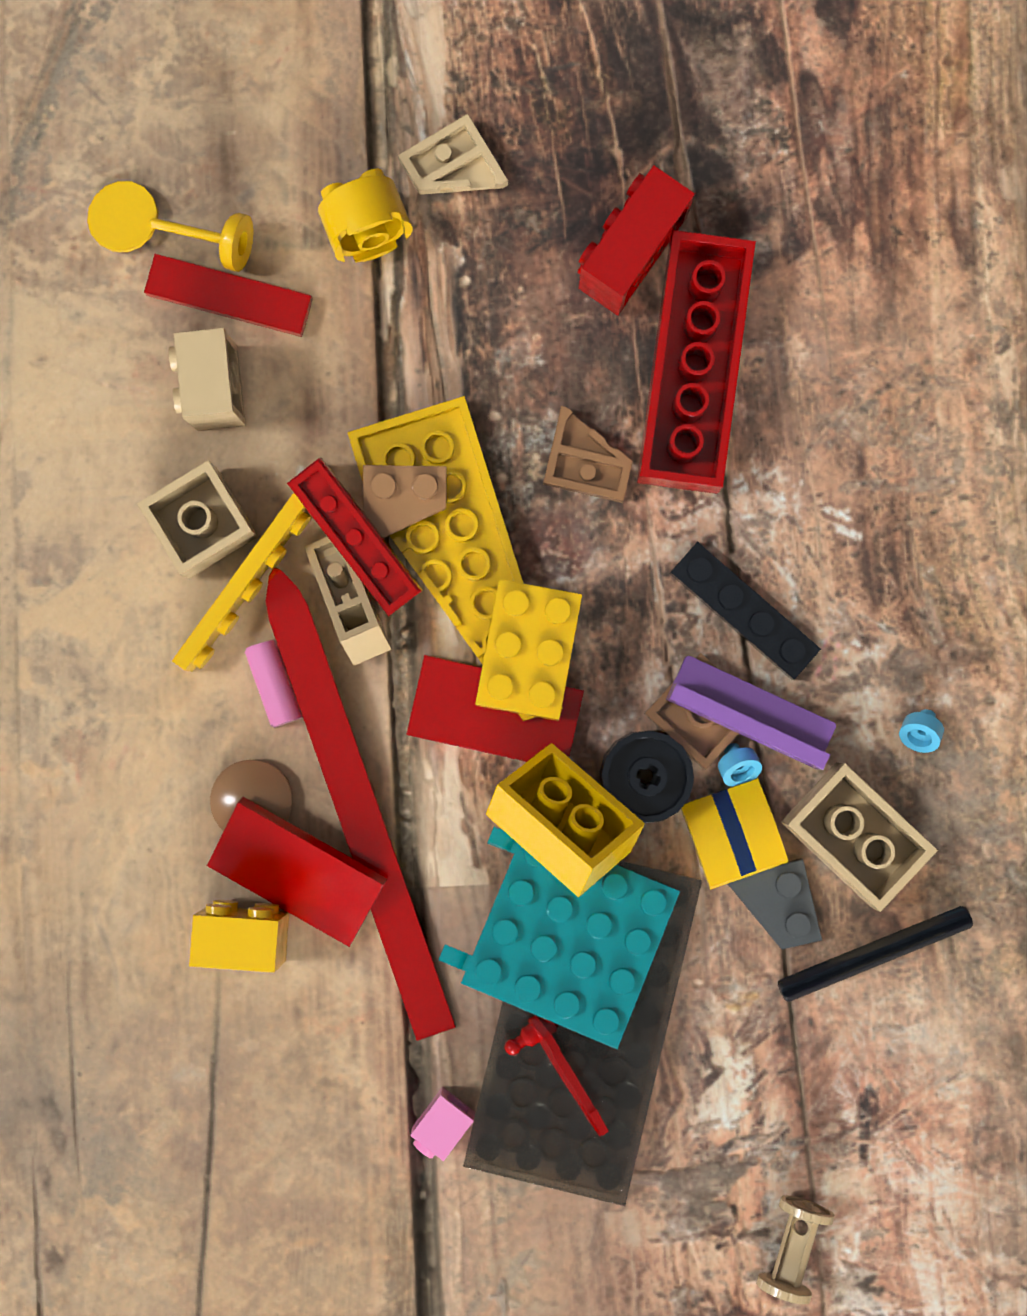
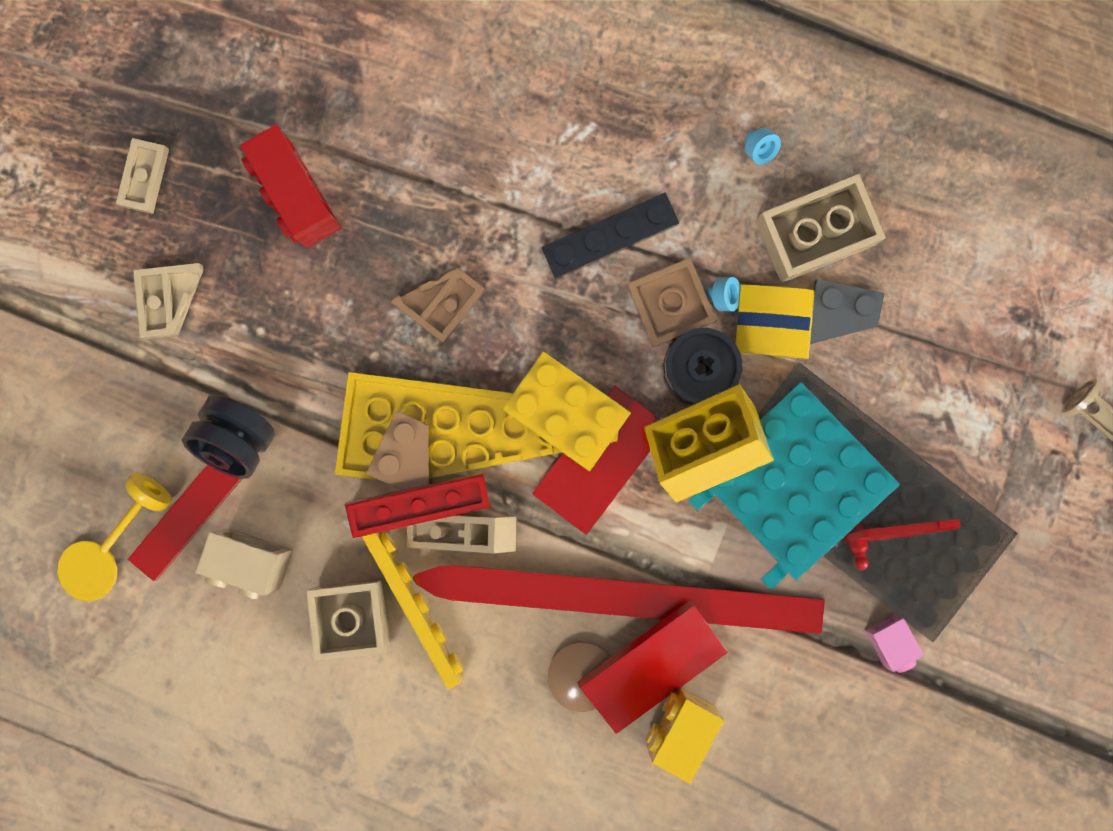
camera: 65 degrees left, 0 degrees up
(273, 683) = (500, 619): bright pink brick -> none
(335, 300) = (228, 436): none -> black wheel
(363, 216) = (174, 385): yellow brick -> none
(574, 75) = (142, 176): none -> tan plate
(696, 362) = (405, 184): red brick -> none
(752, 712) = (690, 265): medium lavender panel -> none
(875, 953) = (912, 258): black axle -> none

